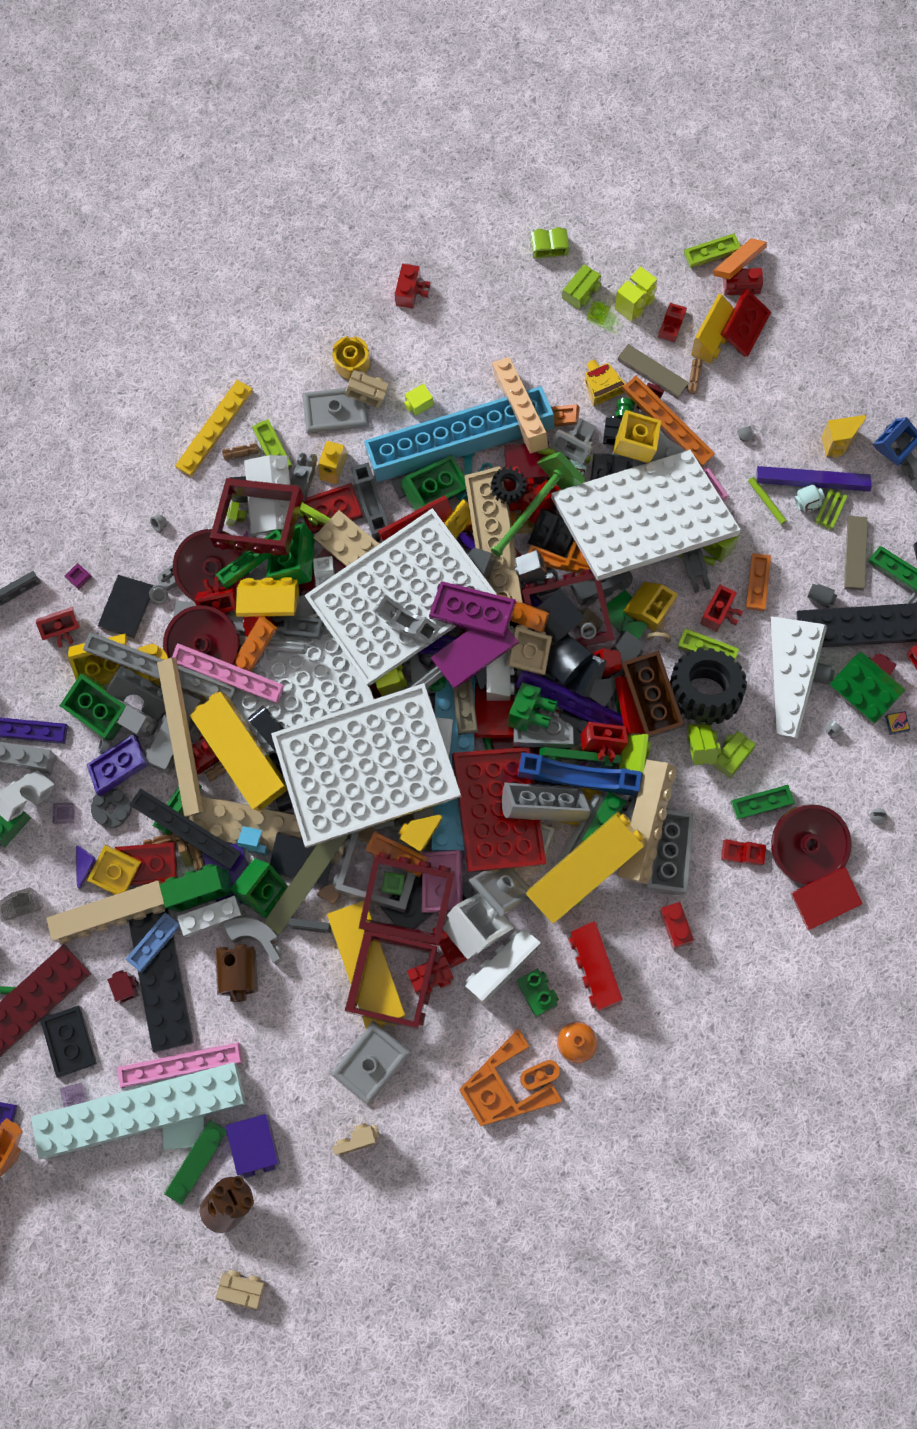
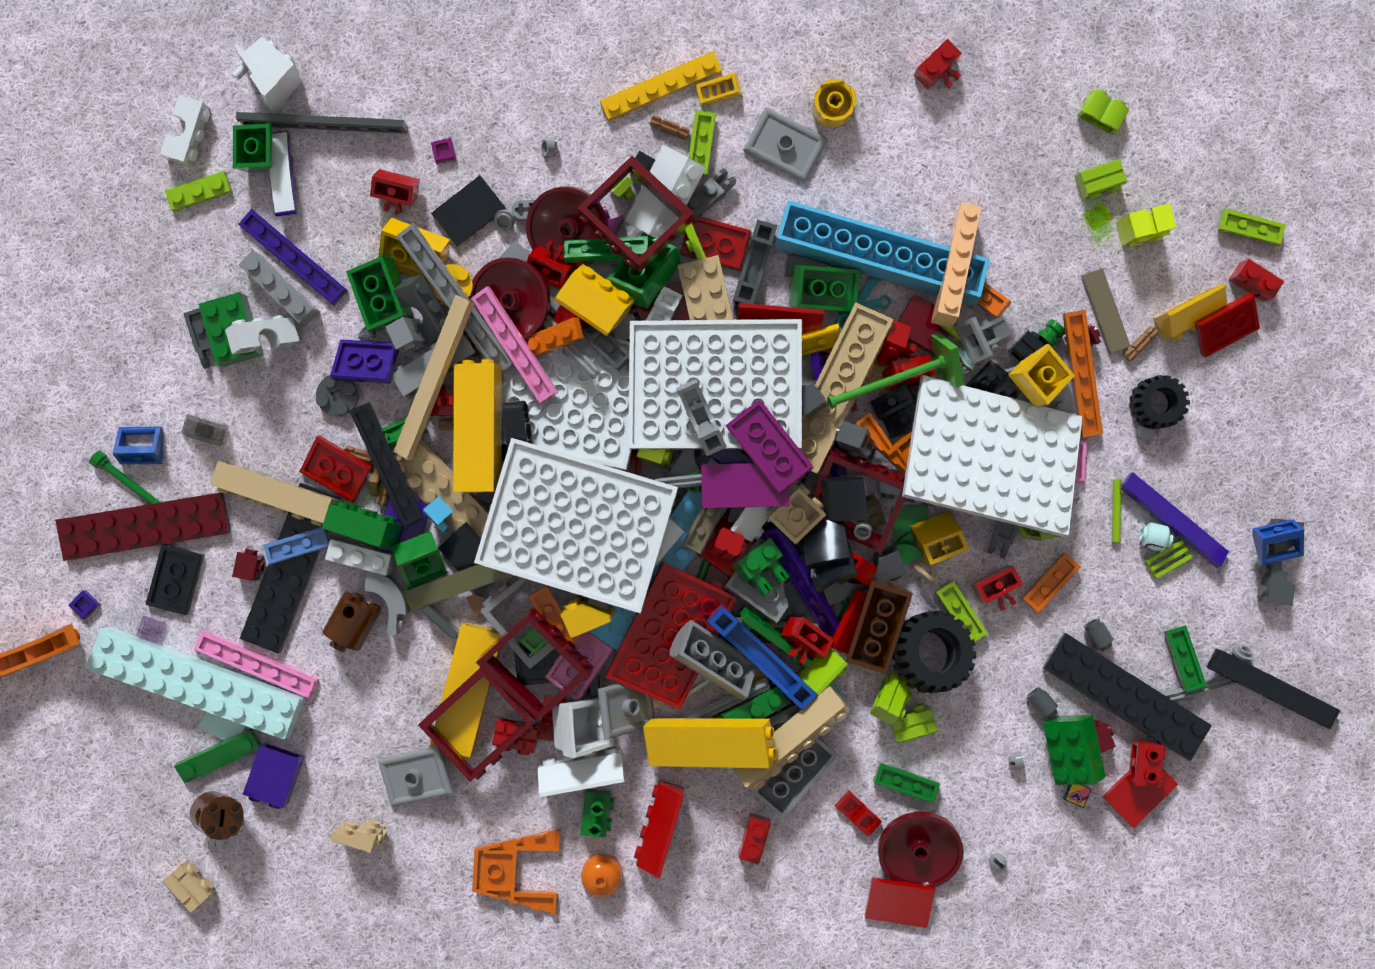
camera: 25 degrees right, 15 degrees up
(63, 813) = (293, 371): clear purple tile -> none
(84, 864) = (281, 433): dark purple piece -> none
(113, 870) = (302, 458): yellow tile -> none
(263, 407) = (733, 77): none -> yellow slope
(332, 458) = (746, 199): yellow torso -> none
(366, 388) = (826, 146): tan brick -> none
(418, 400) = (867, 190): neon yellow brick -> none
(493, 708) = (727, 544): none -> red brick
(520, 485) = (874, 344): black tyre -> none
(529, 616) = (817, 479): orange plate -> none
(539, 1075) = (551, 883): orange plate -> none
(602, 382) = (1050, 291): yellow torso -> none
(672, 322) = (1159, 274): red slope -> none
(738, 391) = (1174, 394): none -> black tyre
(740, 258) = (1270, 257): orange tile -> none
(795, 659) = (1031, 677): white wing -> none
(840, 434) = (1229, 498): yellow slope -> none
(855, 553) = (1159, 615): dark tan tile -> none

